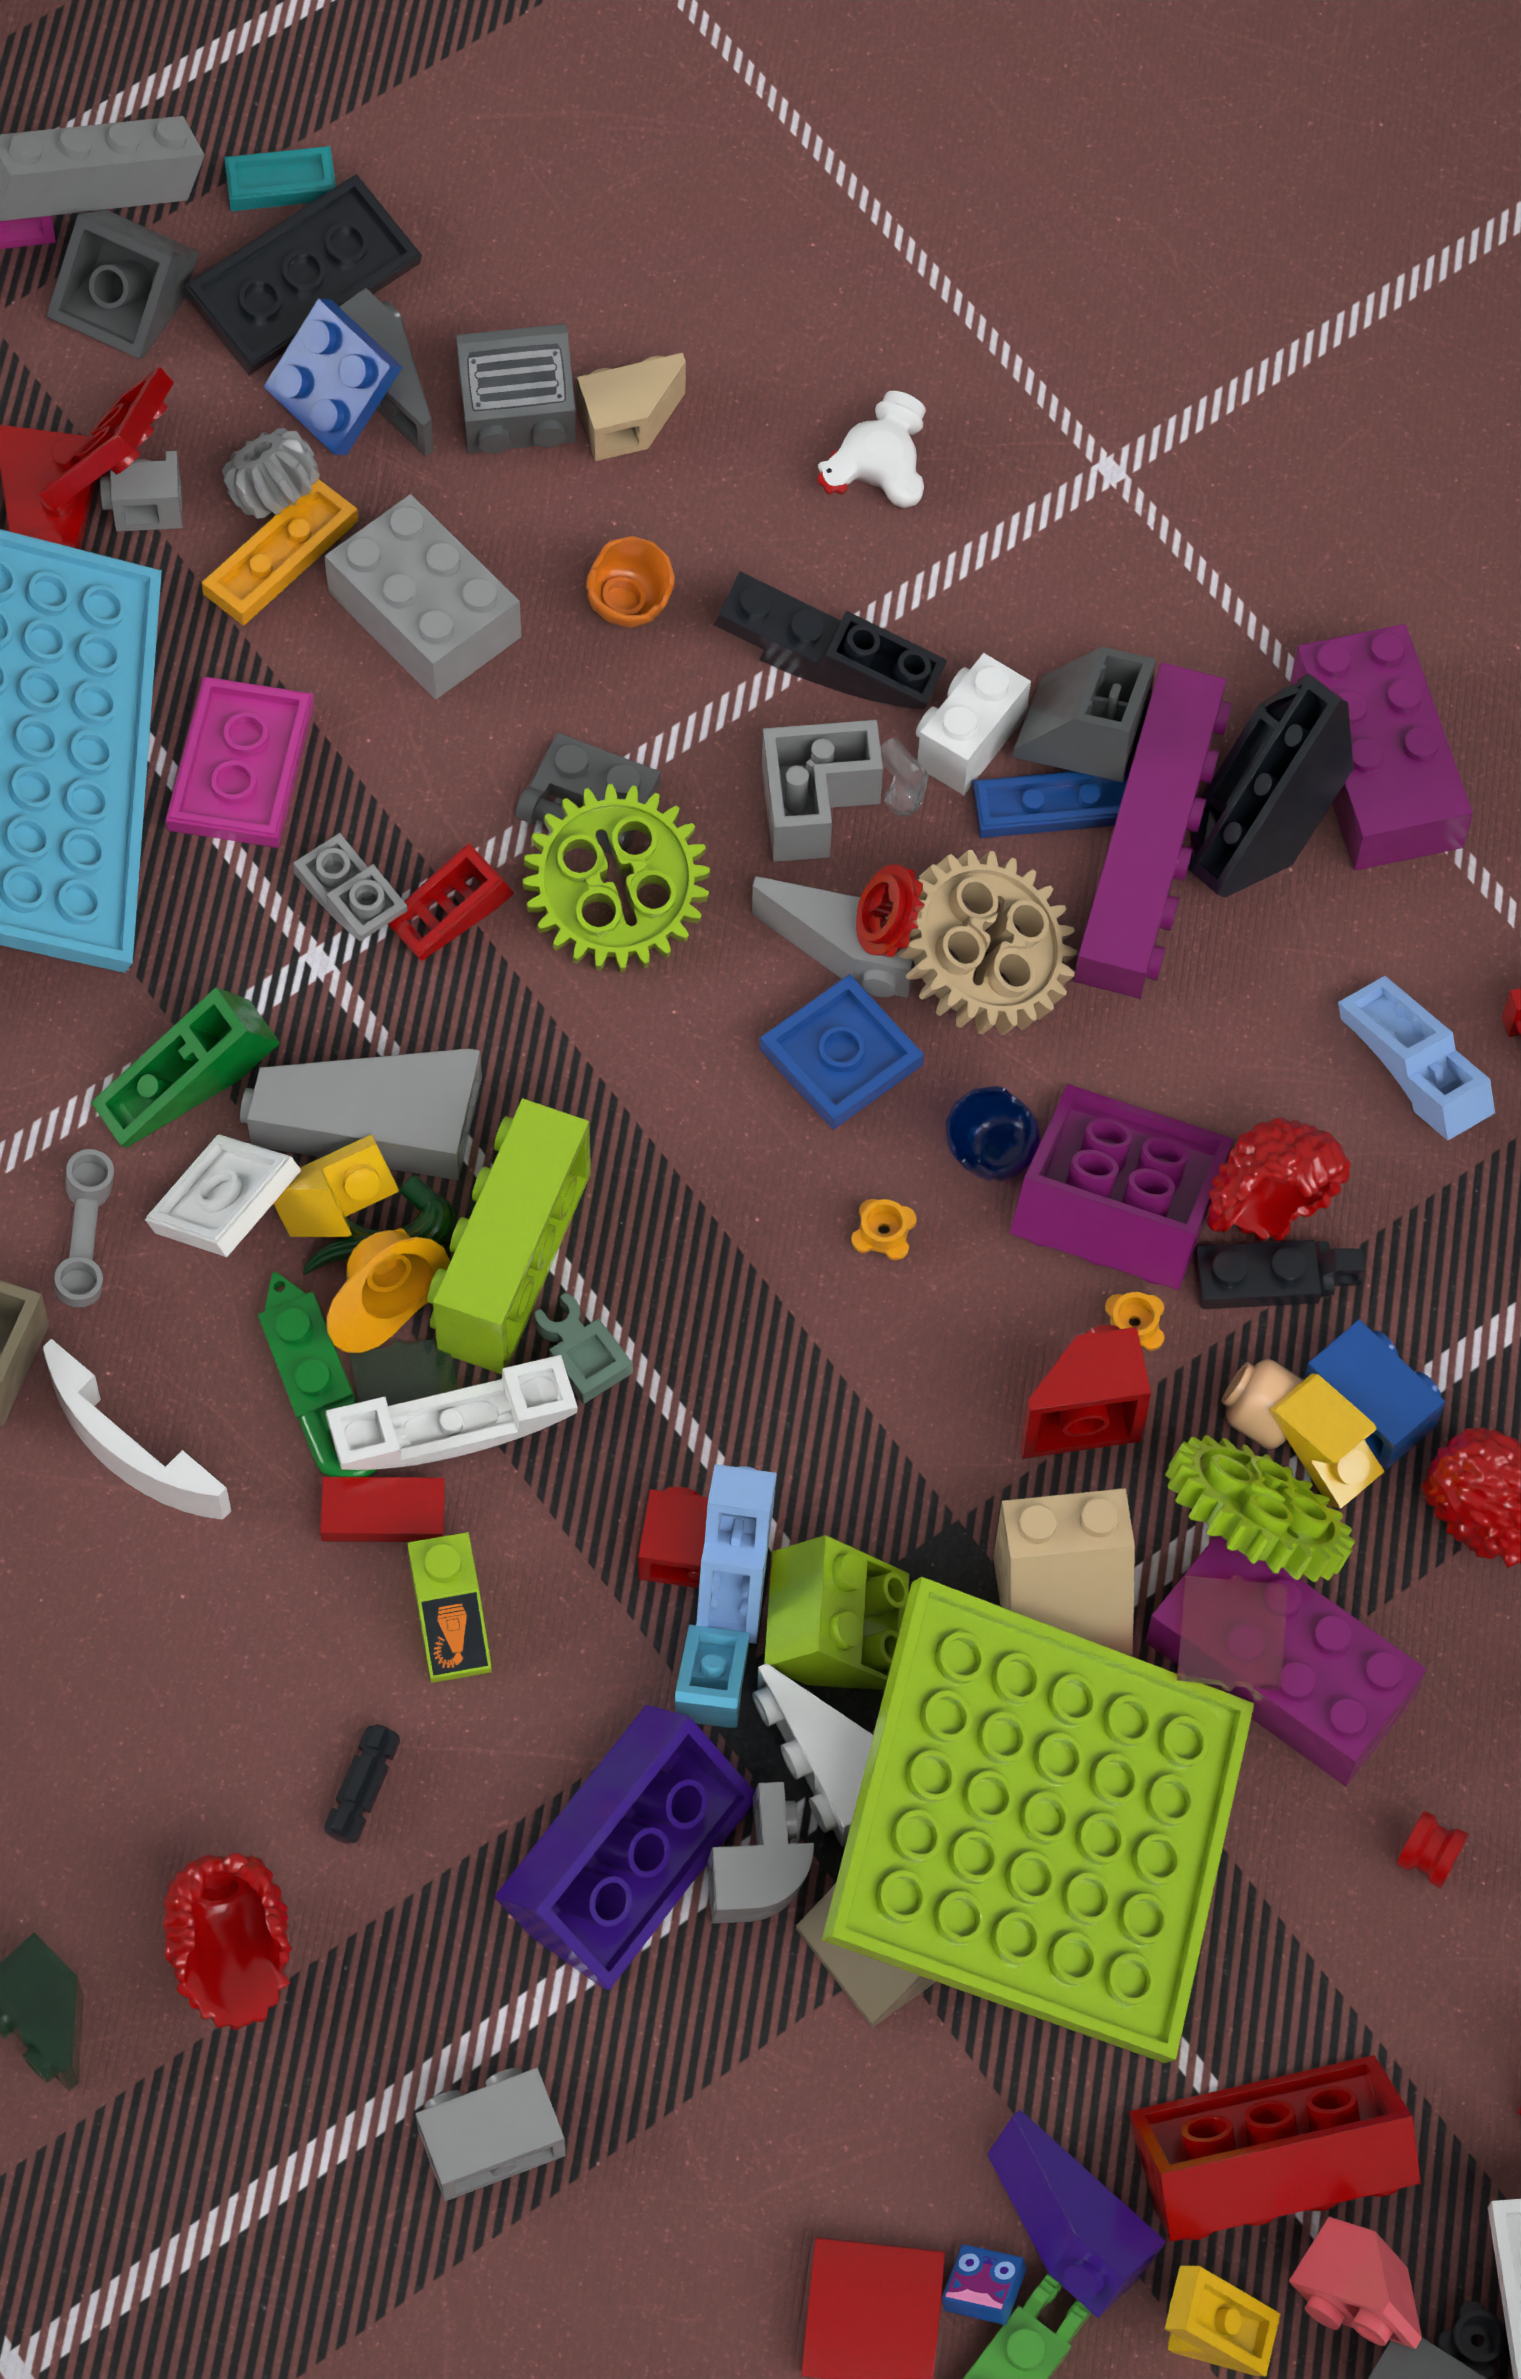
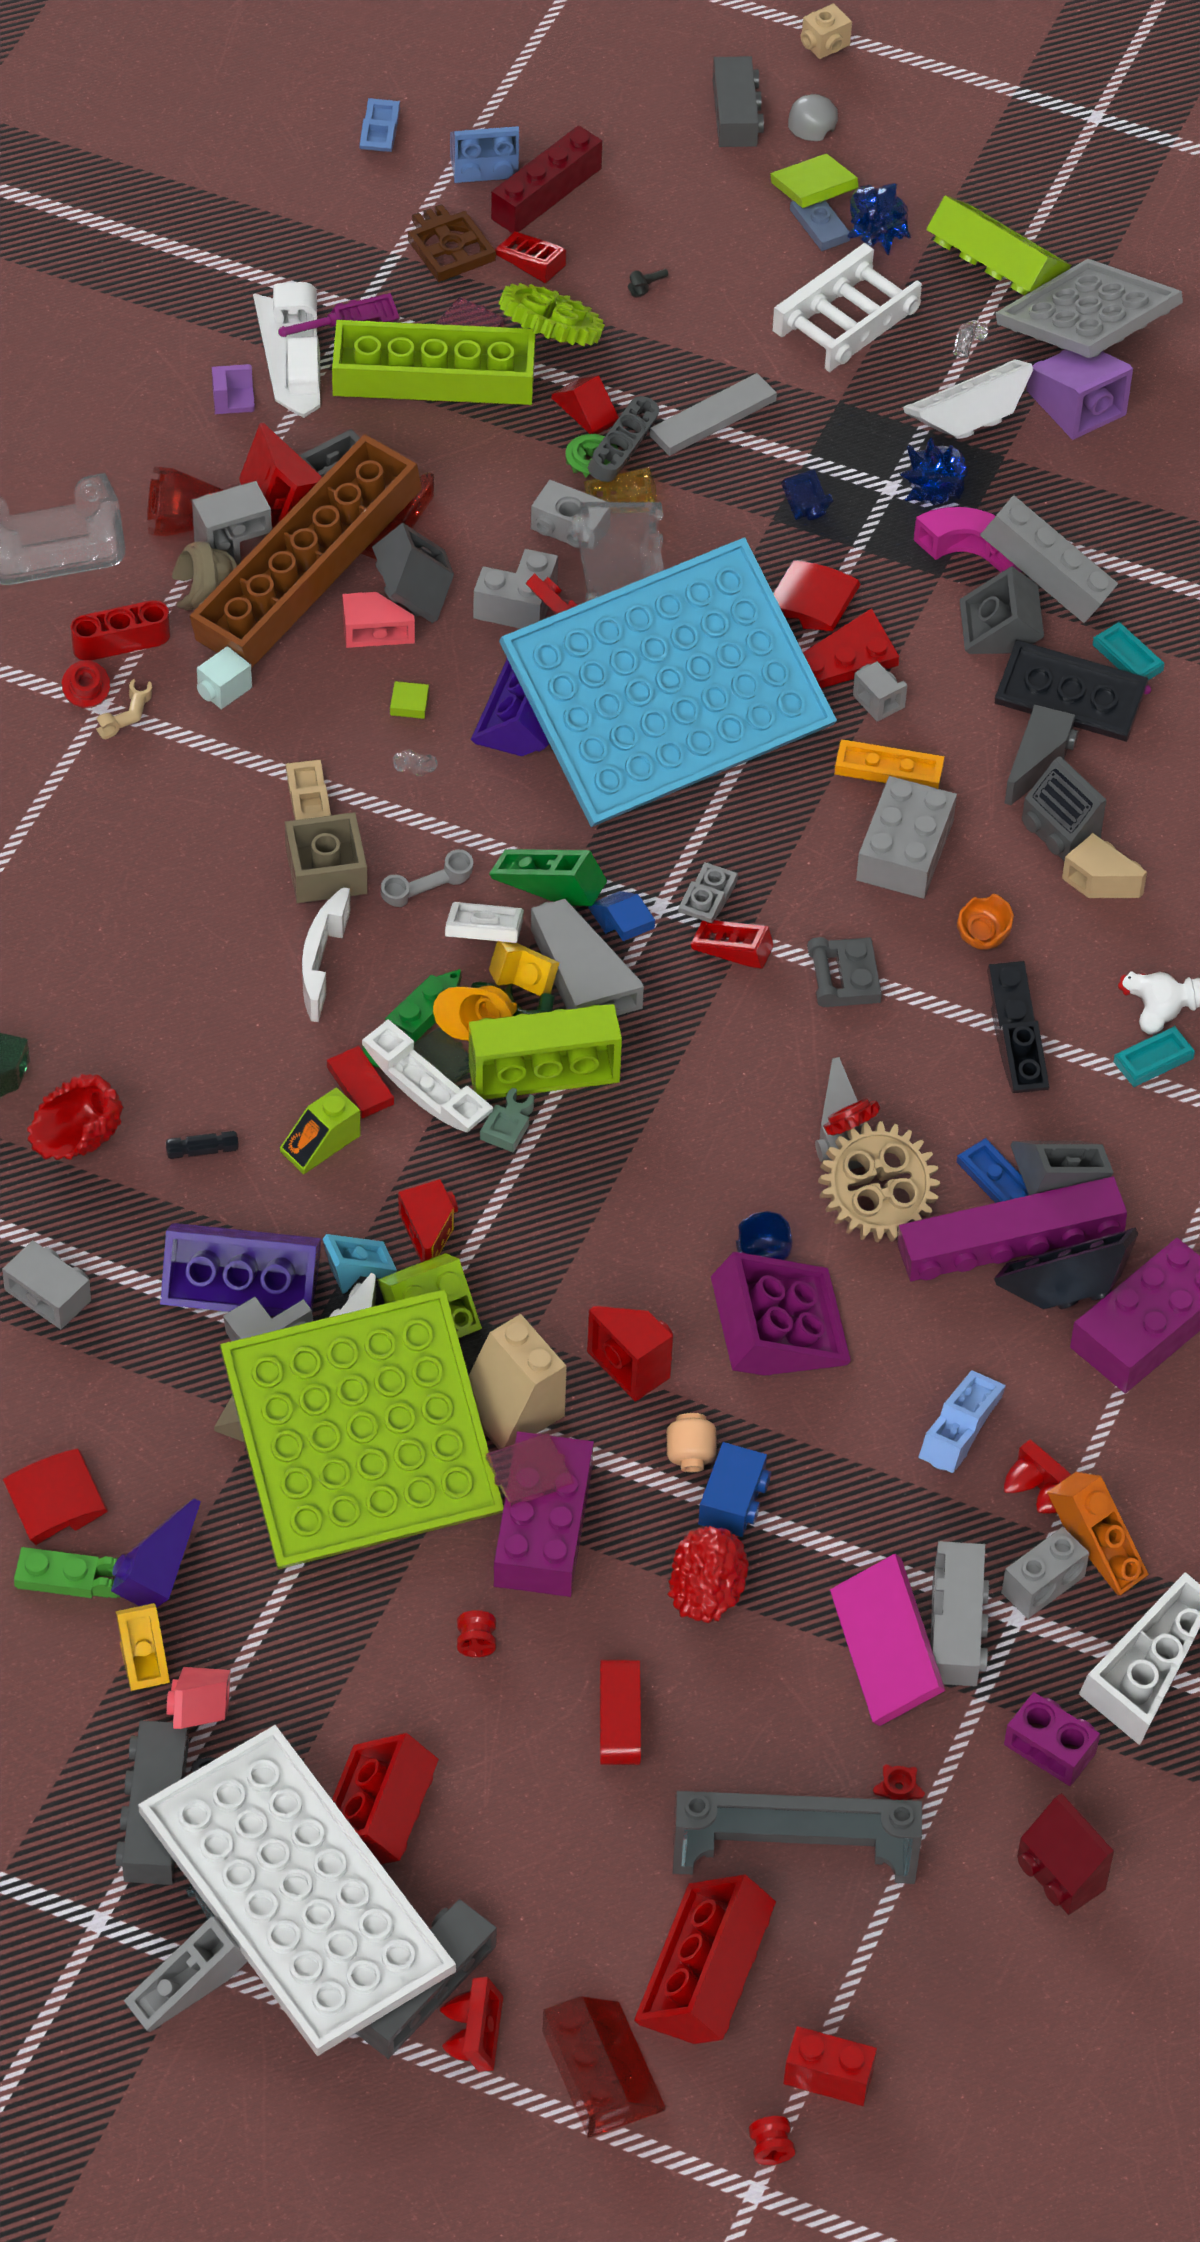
camera: 60 degrees right, 10 degrees down
(113, 439) = (900, 655): red wing -> none
(240, 762) = (751, 813): dark pink tile -> none
(270, 473) = (928, 733): light grey gear -> none
(322, 1004) = (623, 913): none -> blue slope
(332, 376) = (1009, 729): plate -> none
(665, 863) = (795, 1000): lime gear -> none
(736, 1549) = (424, 1220): light blue slope -> none
(809, 773) = (923, 1054): light grey brick -> none
(841, 1051) = (768, 1153): blue plate -> none
(884, 1213) = (676, 1214): light orange plate -> none
(908, 780) = (955, 1112): clear arm -> none
(958, 517) = (1154, 1056): none -> teal tile
(972, 723) = (1016, 1115): white brick -> none
(984, 2284) = (100, 1535): tile -> none
(1142, 1307) = (702, 1353): light orange plate -> none
(1259, 1508) = (596, 1435): lime gear -> none
(1274, 1273) = (778, 1414): black hinge -> none
(1275, 1177) = (825, 1377): red piece -> none
(1275, 2148) = (255, 1633): red slope -> none
(1328, 1439) = (684, 1475): yellow slope -> none

